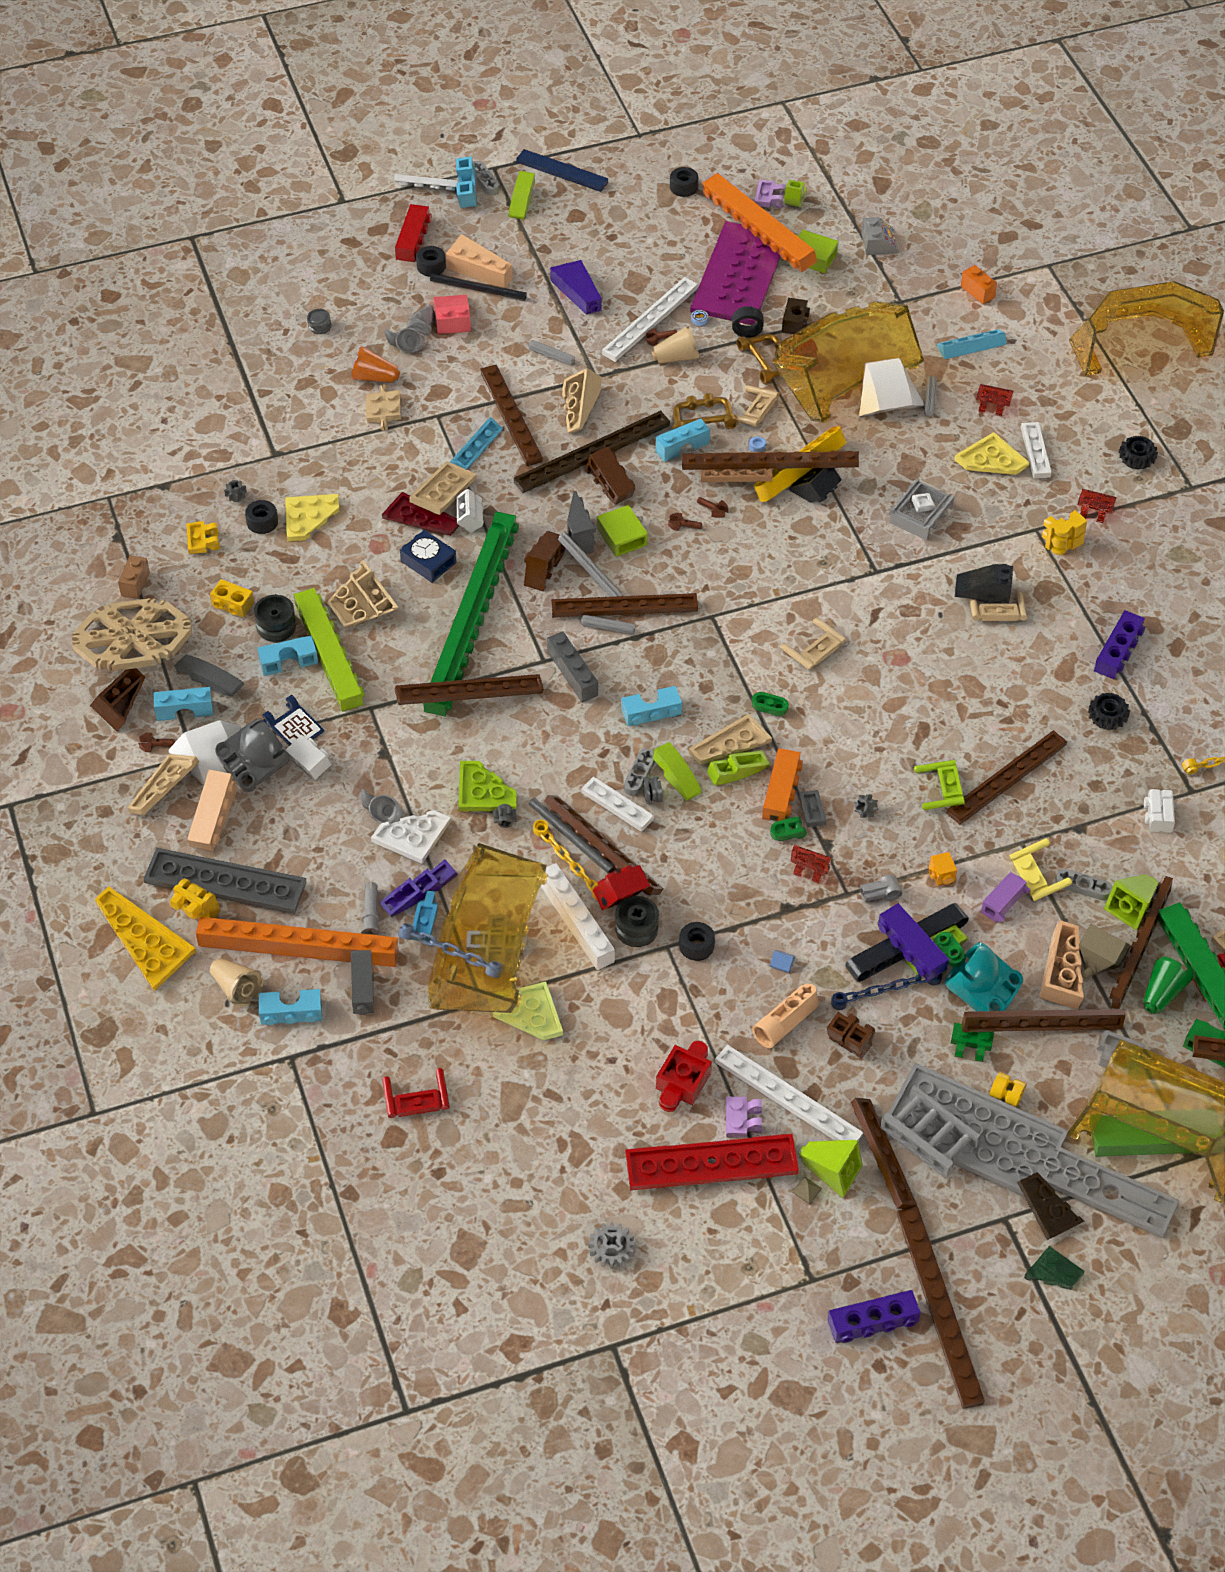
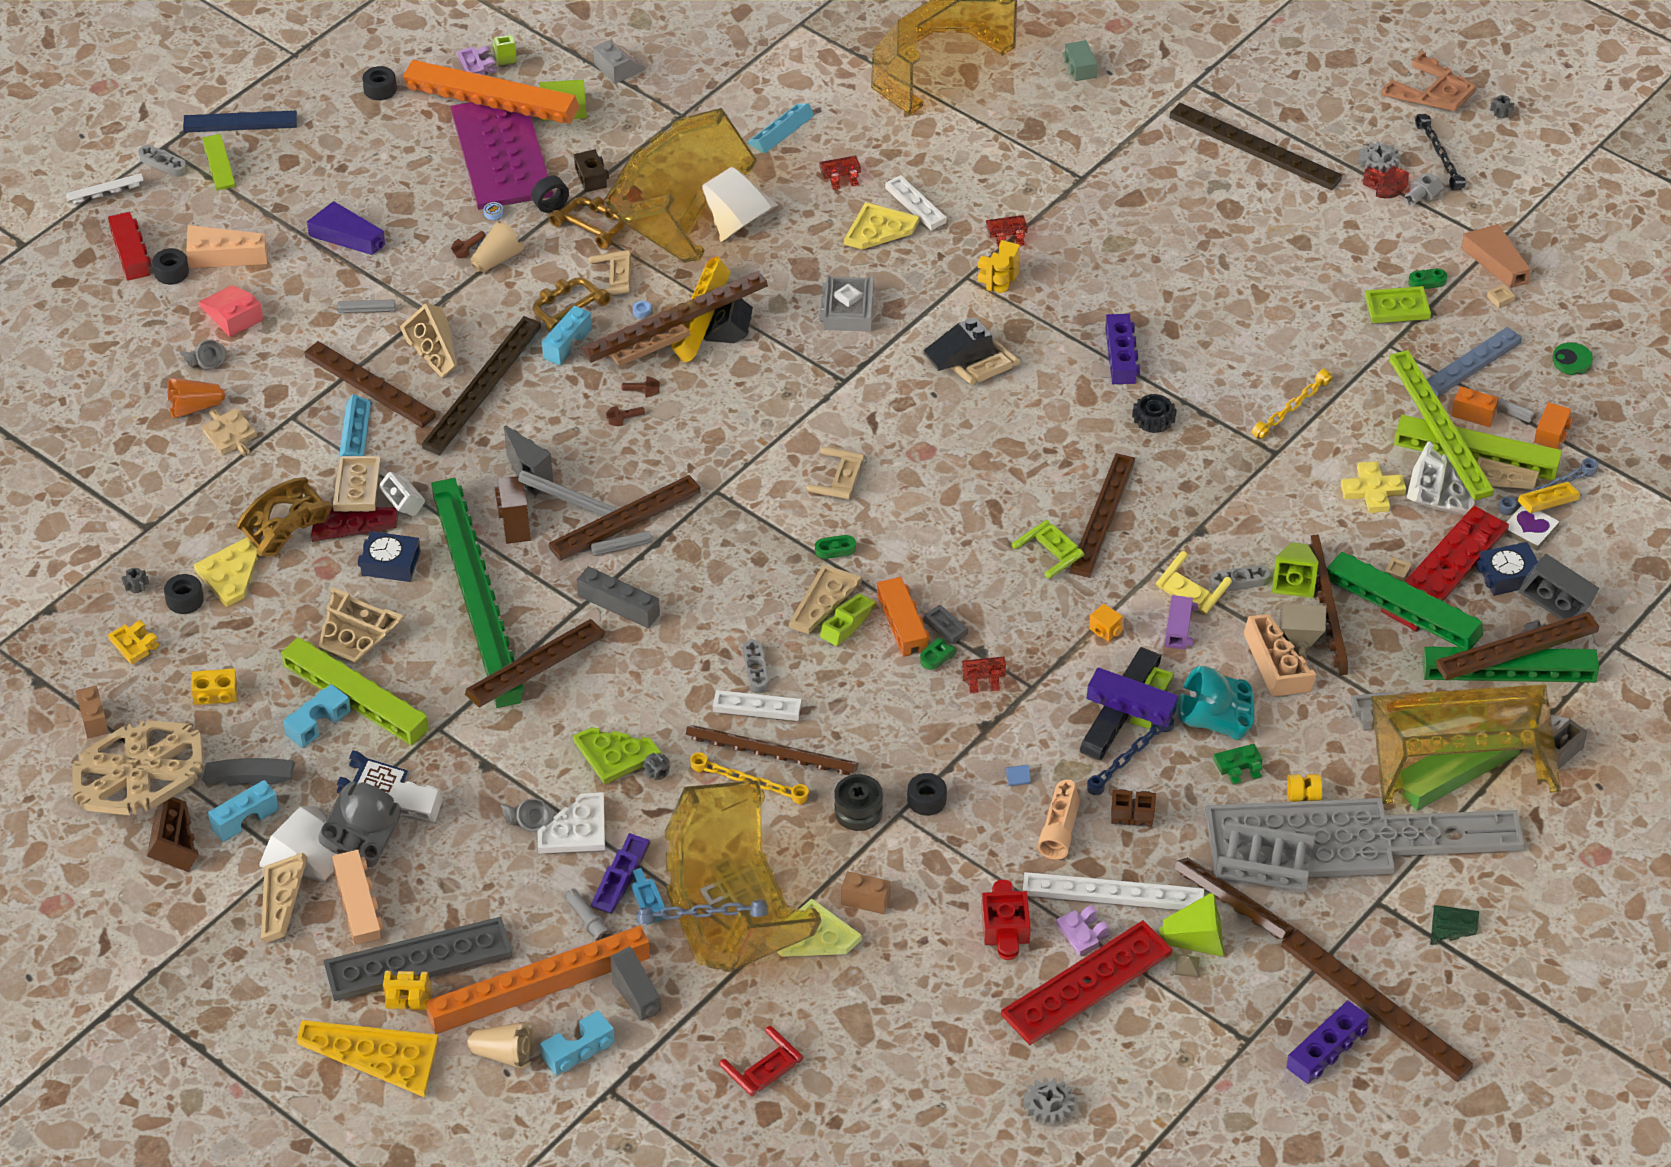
camera: 30 degrees left, 5 degrees down
(152, 742) = (236, 864): copper bar -> none
(275, 617) = (278, 684): pearl dark grey wheel -> none
(319, 321) = (94, 375): dark grey wheel -> none
(382, 493) = (279, 530): none -> pearl gold fence
(422, 320) = (207, 327): light grey hair -> none
(467, 182) = (152, 174): medium azure arch -> none
(478, 286) = (239, 272): black piece -> none
(571, 835) = (733, 755): dark grey piece -> none
(578, 918) = (809, 831): white brick -> none
(590, 998) = (865, 892): none -> medium nougat brick
(610, 475) = (520, 399): reddish brown wedge -> none
(620, 885) = (824, 776): red brick -> none
(622, 530) = (571, 447): lime brick -> none
(638, 711) = (736, 591): medium azure arch -> none
(649, 319) = (444, 232): white plate -> none
(653, 791) = (783, 675): dark grey wheel -> none
(676, 771) = (793, 648): lime slope -> none
(866, 806) = (990, 597): dark grey gear -> none
(885, 888) = (1065, 664): light grey piece -> none
(930, 396) = (778, 193): light grey axle -> none
(950, 947) = (1171, 684): green plate -> none
(978, 284) = (750, 67): orange brick -> none
(1043, 1020) = (1293, 712): reddish brown plate -> none
(1048, 1208) = (1413, 873): dark brown wing -> none
(1138, 452) = (1013, 165): black gear -> none
(1160, 810) = (1262, 481): white brick -> none
(1165, 984) = (1376, 629): green cone -> none

